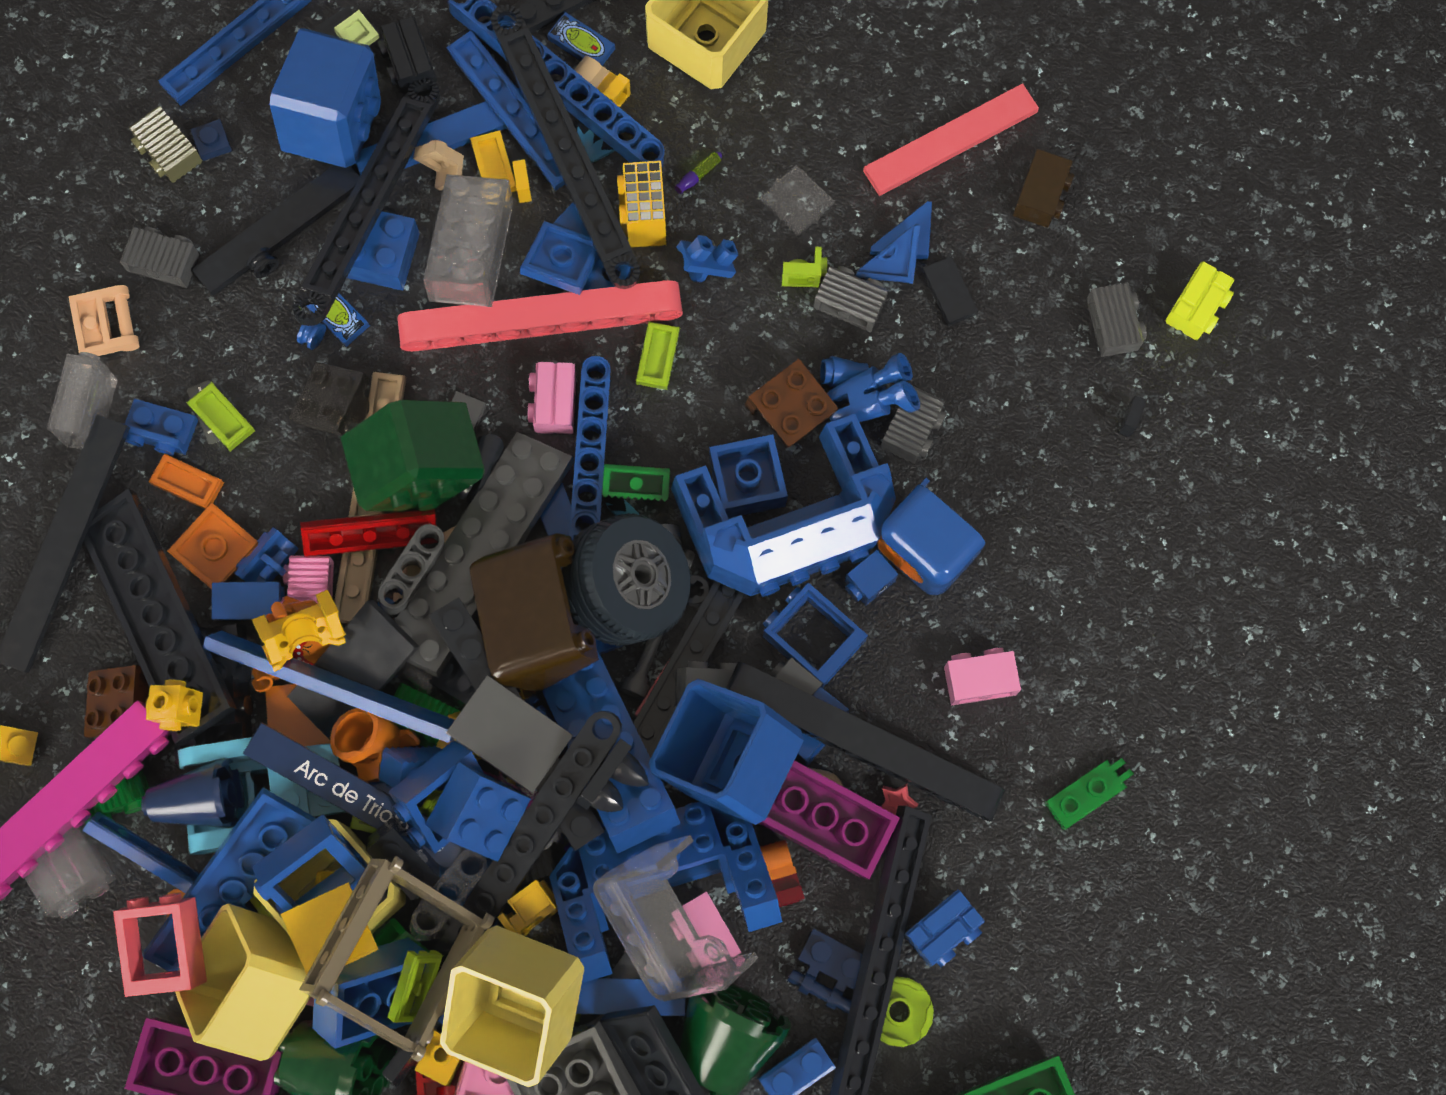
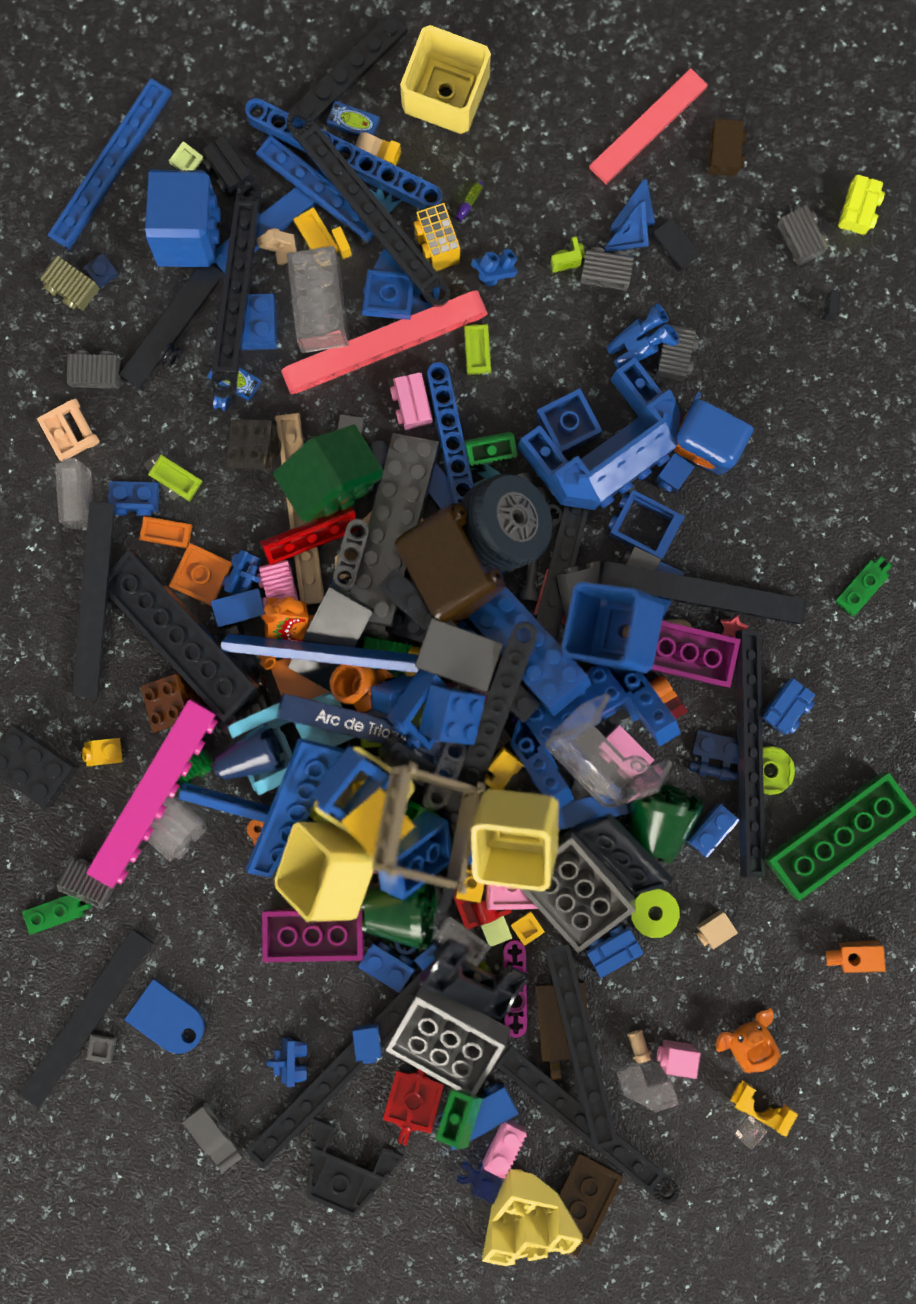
camera: 15 degrees left, 10 degrees up
(174, 705) = (216, 696): yellow brick -> none
(188, 944) = (267, 886): coral window -> none
(314, 623) = (299, 612): yellow piece -> none
(411, 986) = (442, 843): lime tile -> none
(620, 766) = (544, 658): black tile -> none
(792, 403) = (586, 360): reddish brown bracket -> none
(797, 200) = (546, 203): clear piece -> none
(837, 370) = (612, 326): blue cone -> none
(982, 677) = (771, 524): bright pink brick -> none

